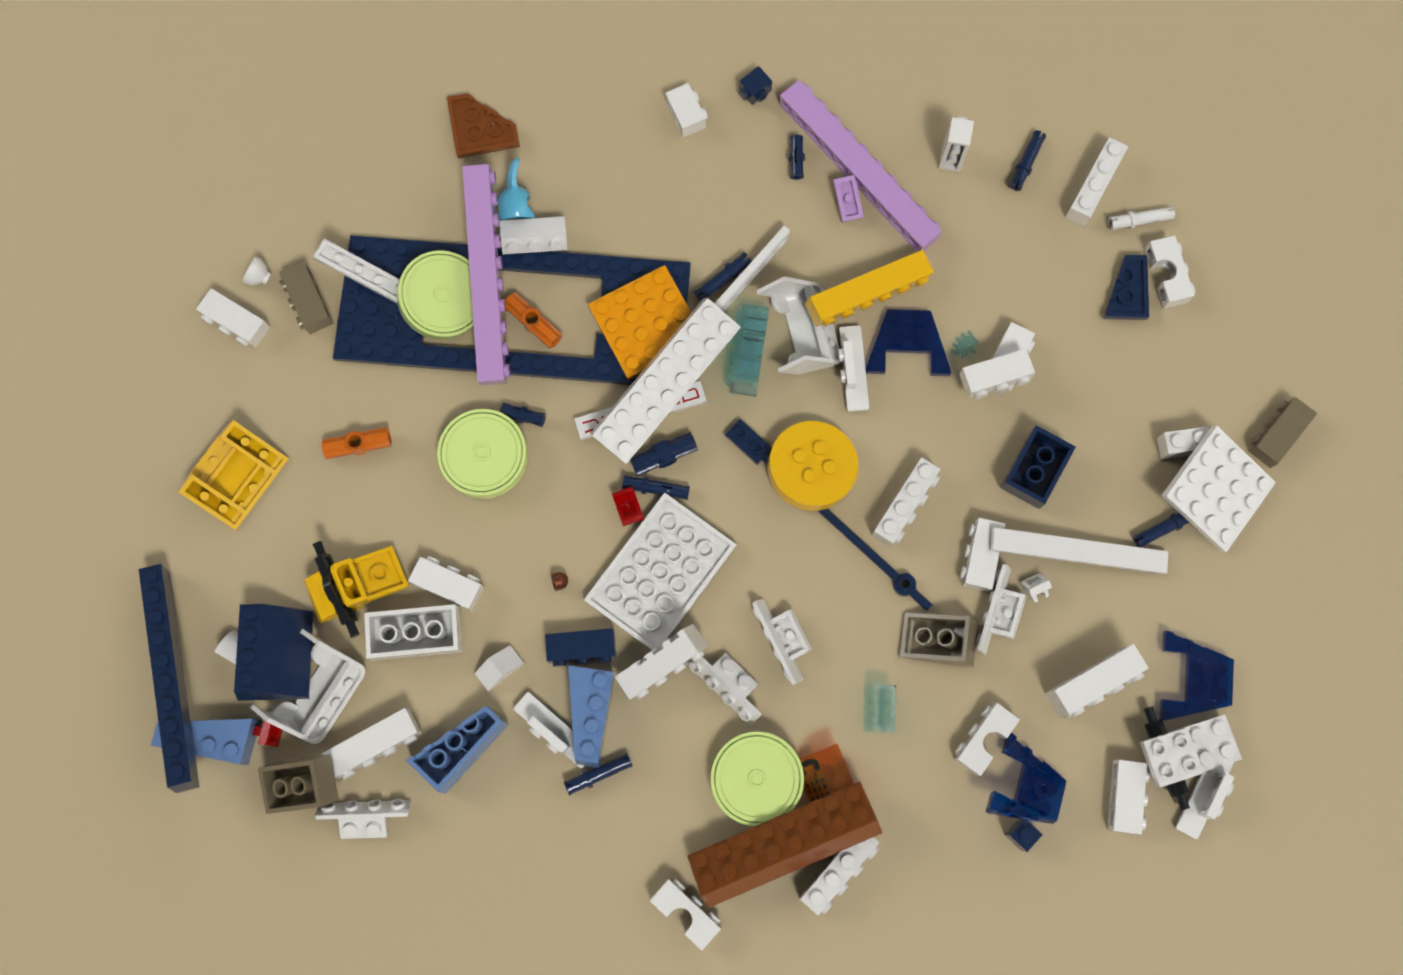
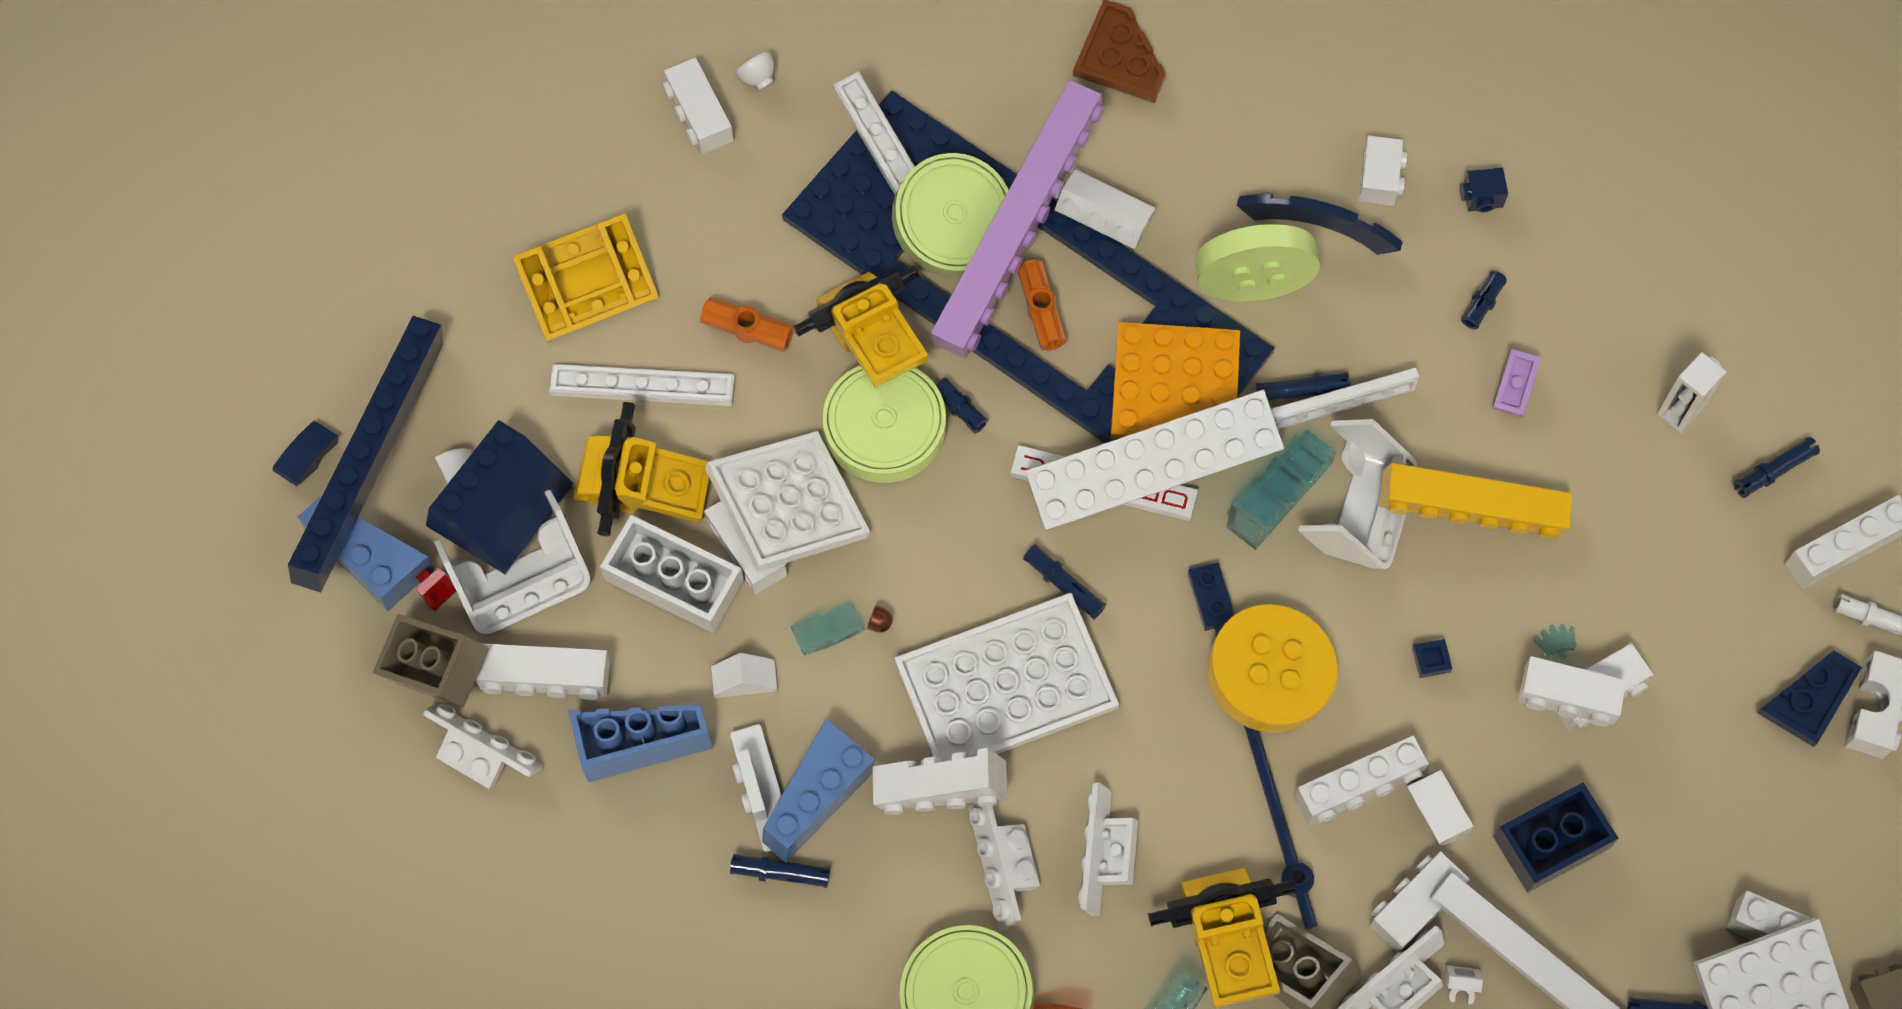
camera: 30 degrees right, 10 degrees down
(126, 698) = (305, 450): none -> dark blue slope
(305, 298) = (794, 130): dark tan brick -> none
(314, 521) = (642, 384): none -> white tile
(435, 398) = (870, 324): none -> yellow piece
(455, 542) = (787, 500): none -> white plate
(513, 199) = (1107, 154): medium azure piece -> none
(531, 605) = (827, 629): none -> clear light blue slope
(581, 647) = (856, 710): dark blue brick -> none
(627, 506) = (1016, 582): red bracket -> none
(651, 216) = (1257, 263): none -> yellowish green brick
(663, 454) = (1099, 548): dark blue piece -> none
(668, 161) = (1321, 214): none -> dark blue tile
(853, 370) = (1396, 586): white bracket -> none
(855, 160) = (1560, 369): lavender brick -> none
(887, 644) = (1229, 932): none -> yellow piece
(901, 401) = (1432, 658): none -> dark blue plate
(908, 333) = (1494, 586): clear blue wing -> none
(961, 490) = (1440, 808): none -> white brick

